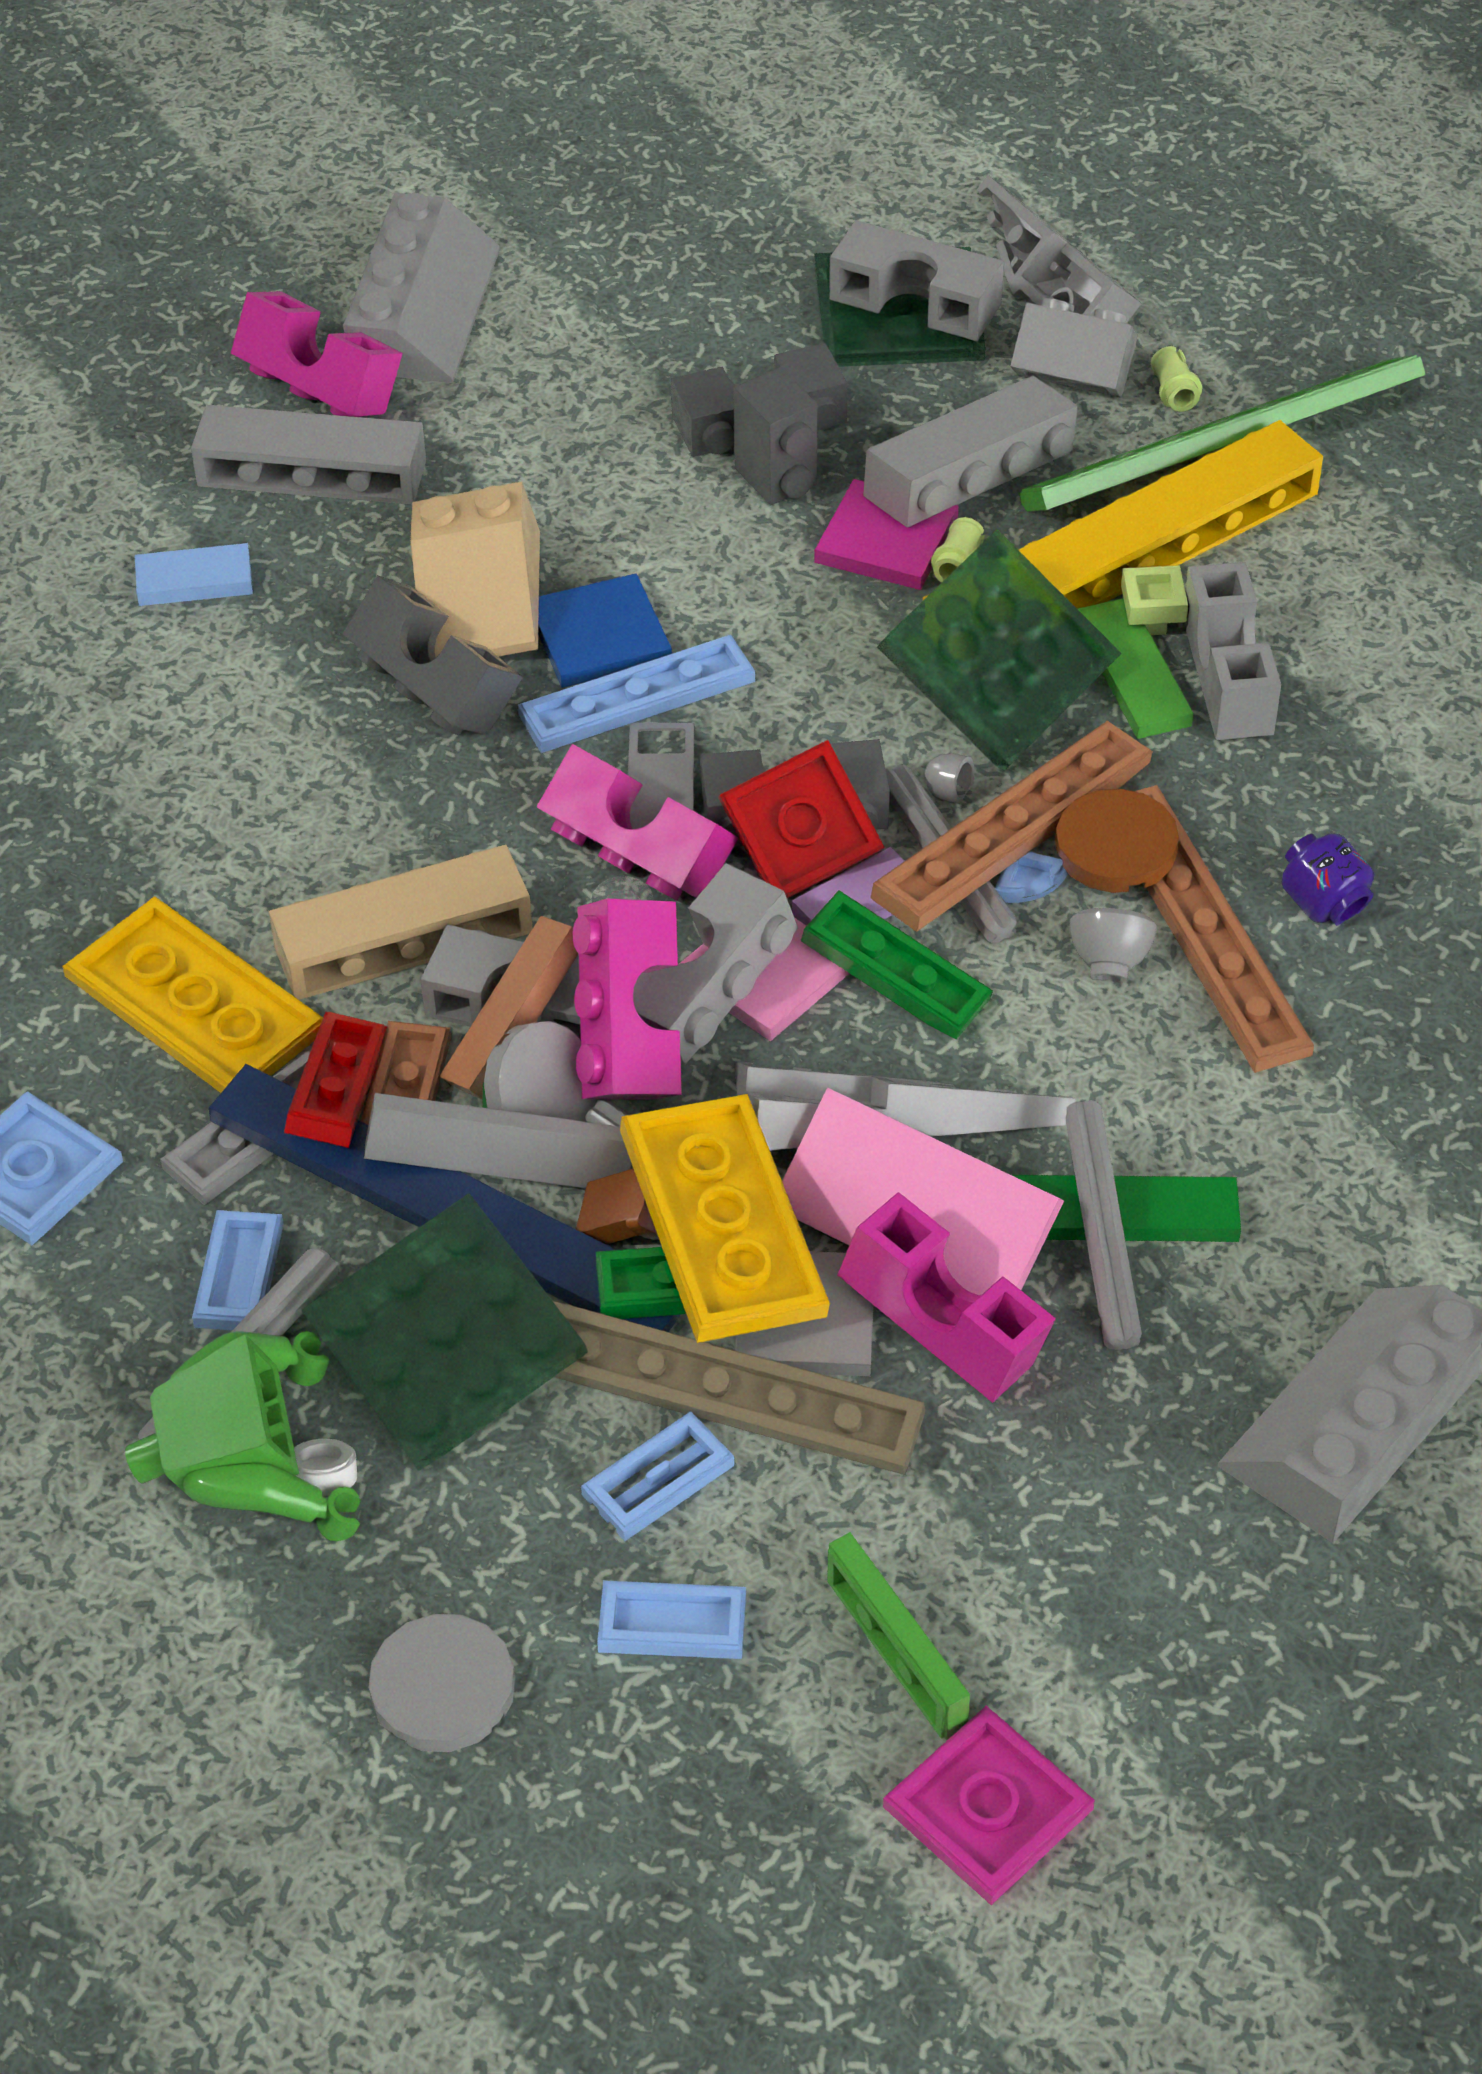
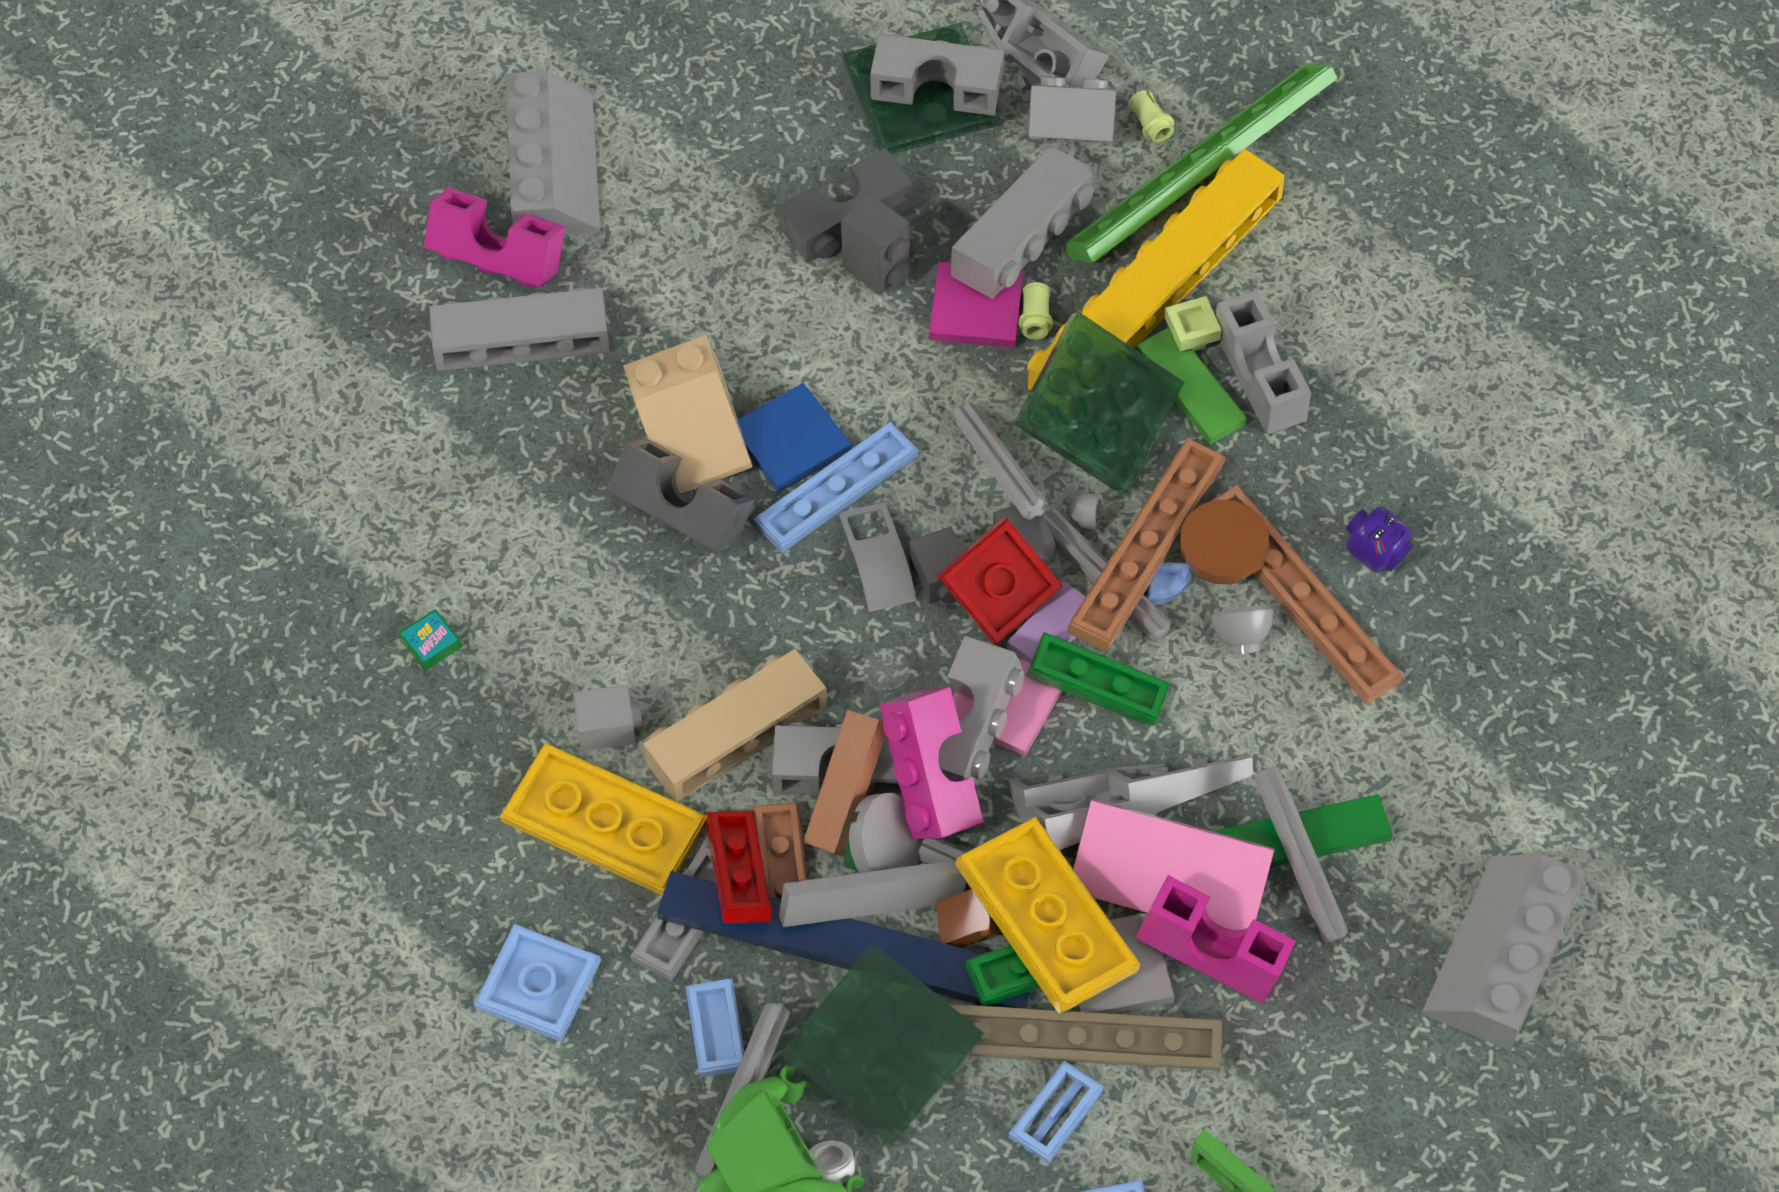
camera: 15 degrees left, 10 degrees up
(62, 758) = (430, 639): none -> tile
(193, 574) = (466, 454): light blue tile -> none
(239, 880) = (606, 717): none -> light grey brick
(596, 803) = (841, 597): dark pink arch -> none
(850, 694) = (999, 461): none -> light grey axle

